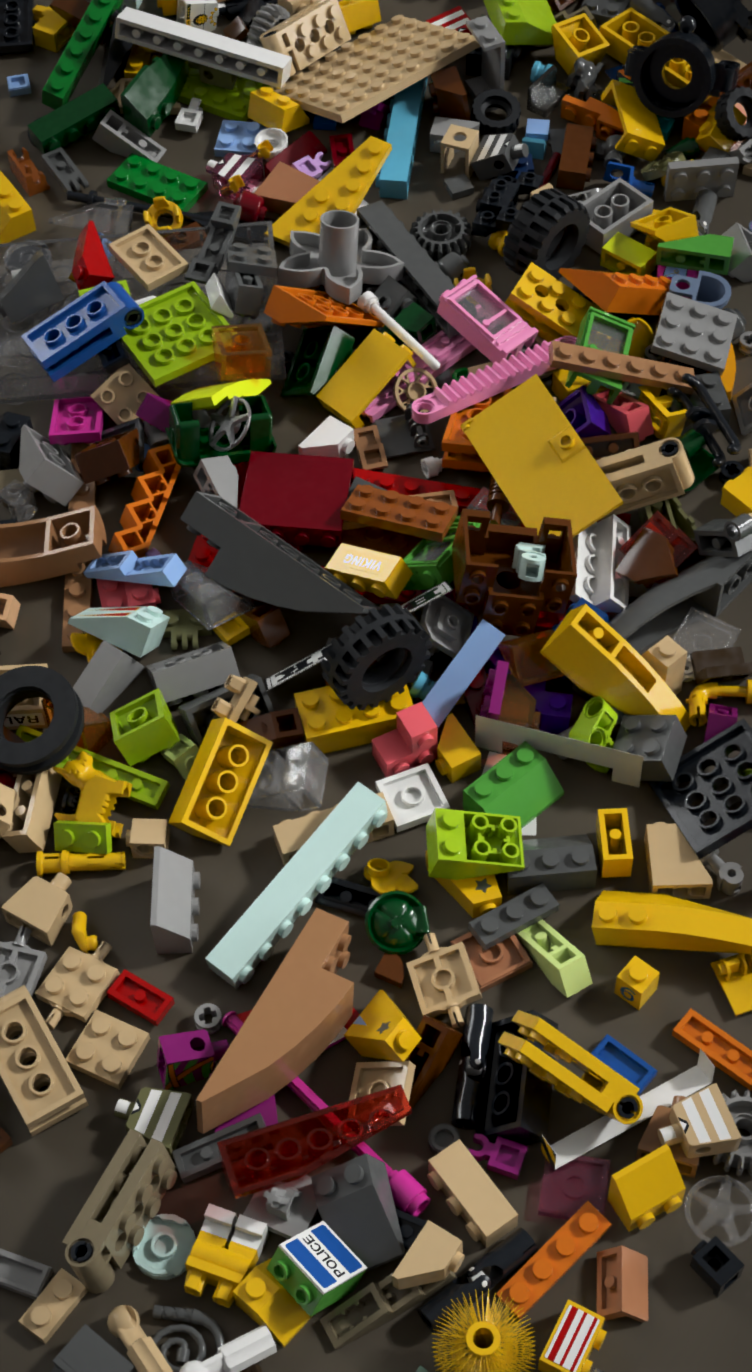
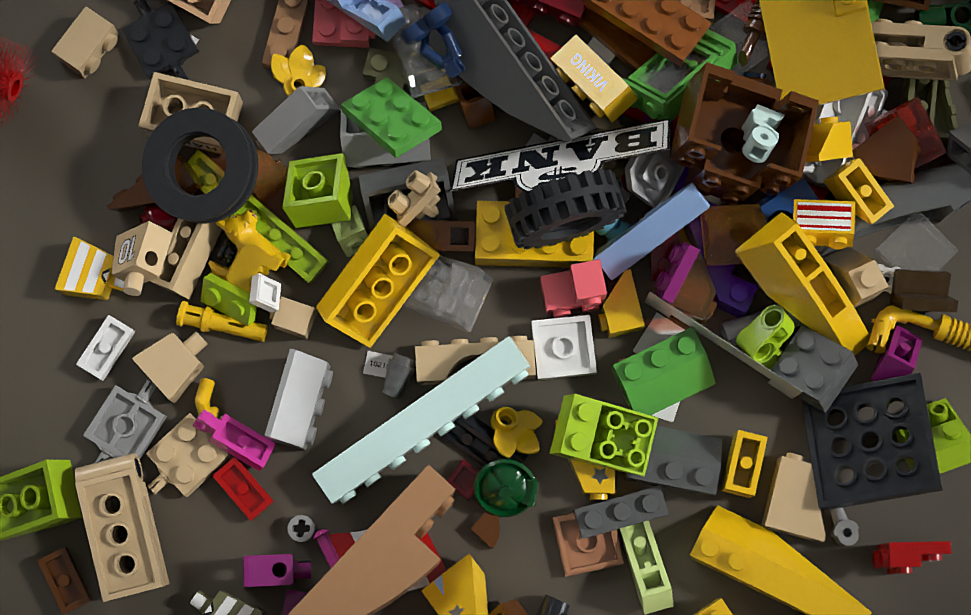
camera: 15 degrees right, 25 degrees up
(107, 1049) = (200, 531): tan plate -> none
(116, 816) = (265, 293): none -> white tile
(120, 952) = (236, 439): none -> dark pink plate
(129, 628) = (324, 65): light aqua slope -> none
(194, 646) = (391, 117): none -> bright green plate
(201, 565) = (421, 30): none -> dark blue piece
(243, 861) = (376, 364): none -> white sticker
(263, 859) = (398, 374): none -> flat silver cone
(359, 938) = (463, 479): none -> dark red tile
(444, 980) = (533, 560): tan plate -> none
(593, 563) = (830, 140): none -> yellow slope
(621, 614) = (826, 221): none -> brick
(631, 589) = (857, 184): none -> yellow slope

